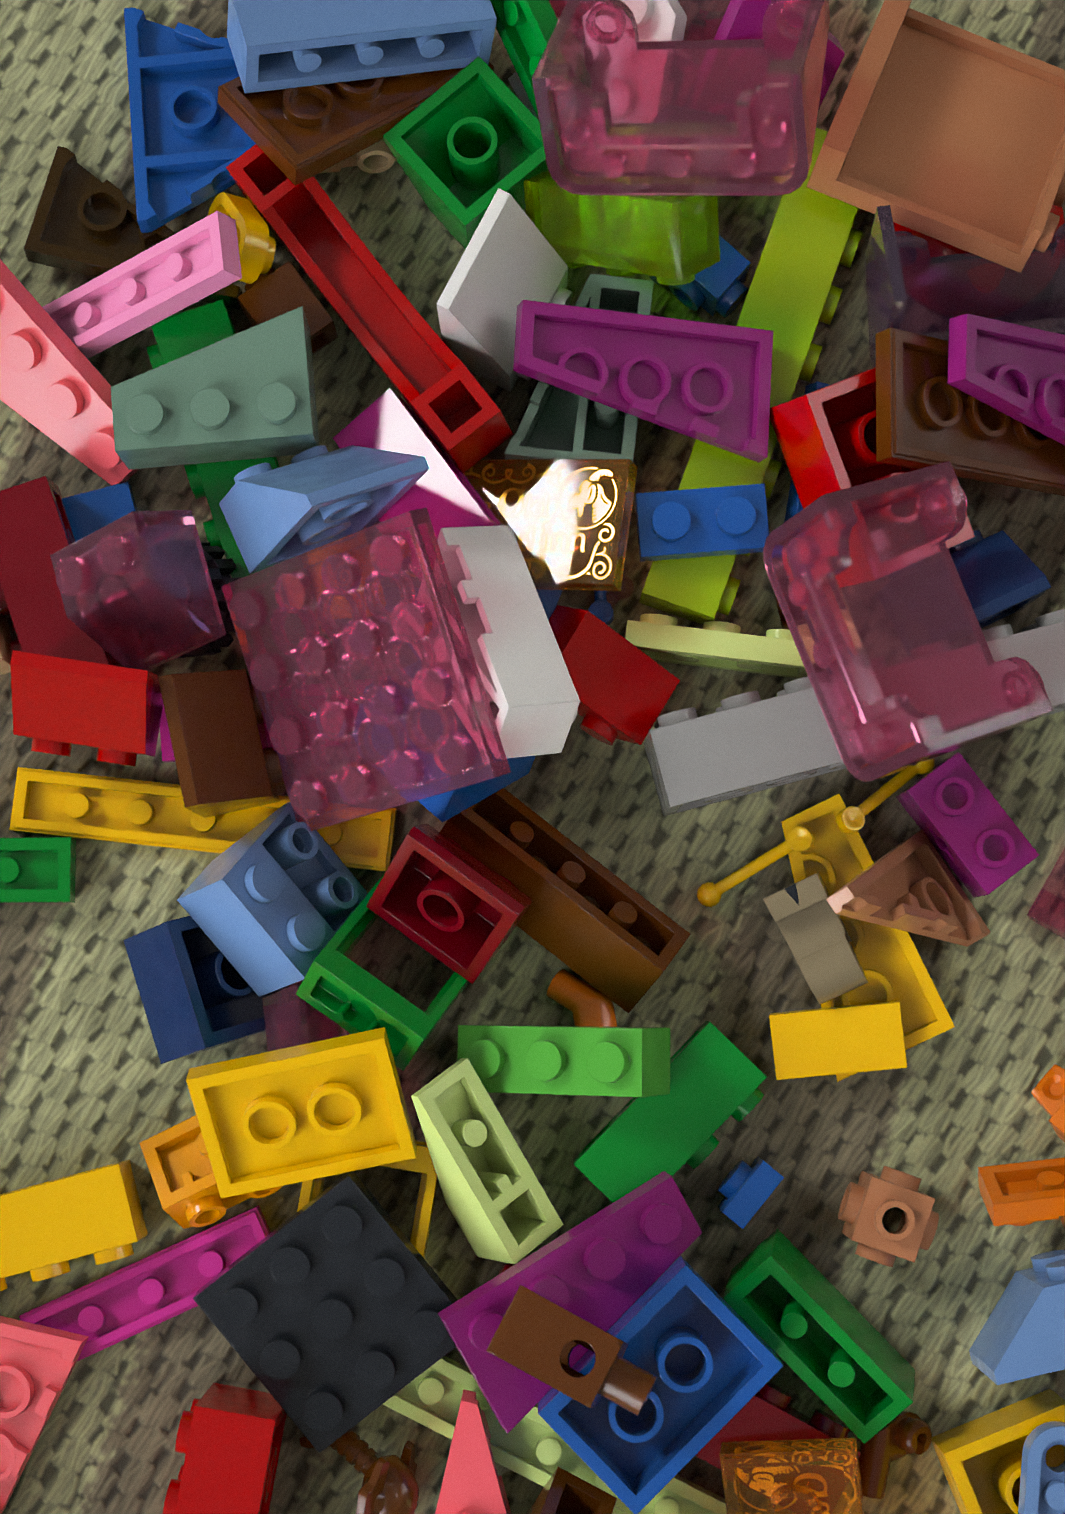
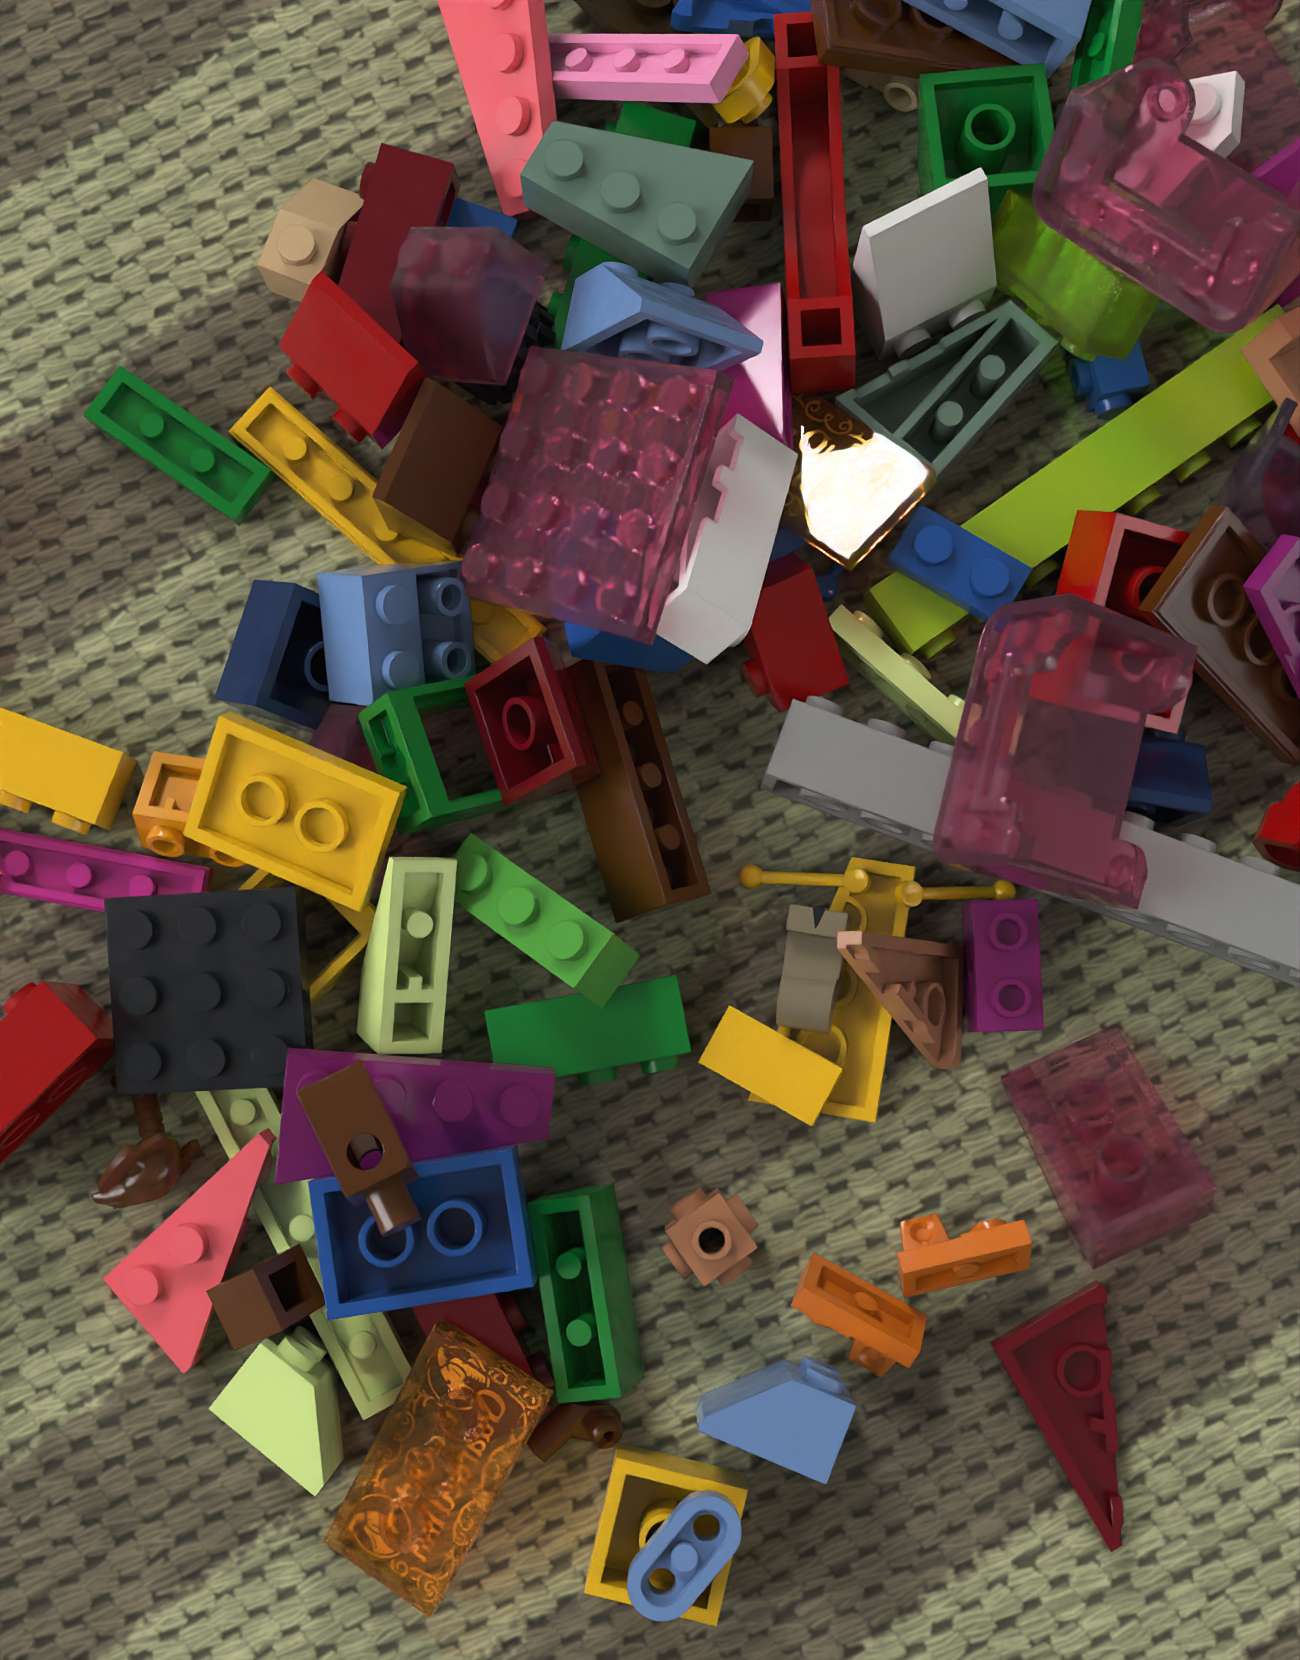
camera: 35 degrees right, 0 degrees up
(587, 1003) = (587, 886): orange arm -> none
(662, 369) = (1014, 417): magenta wing -> none
(747, 1190) = (611, 1133): blue plate -> none

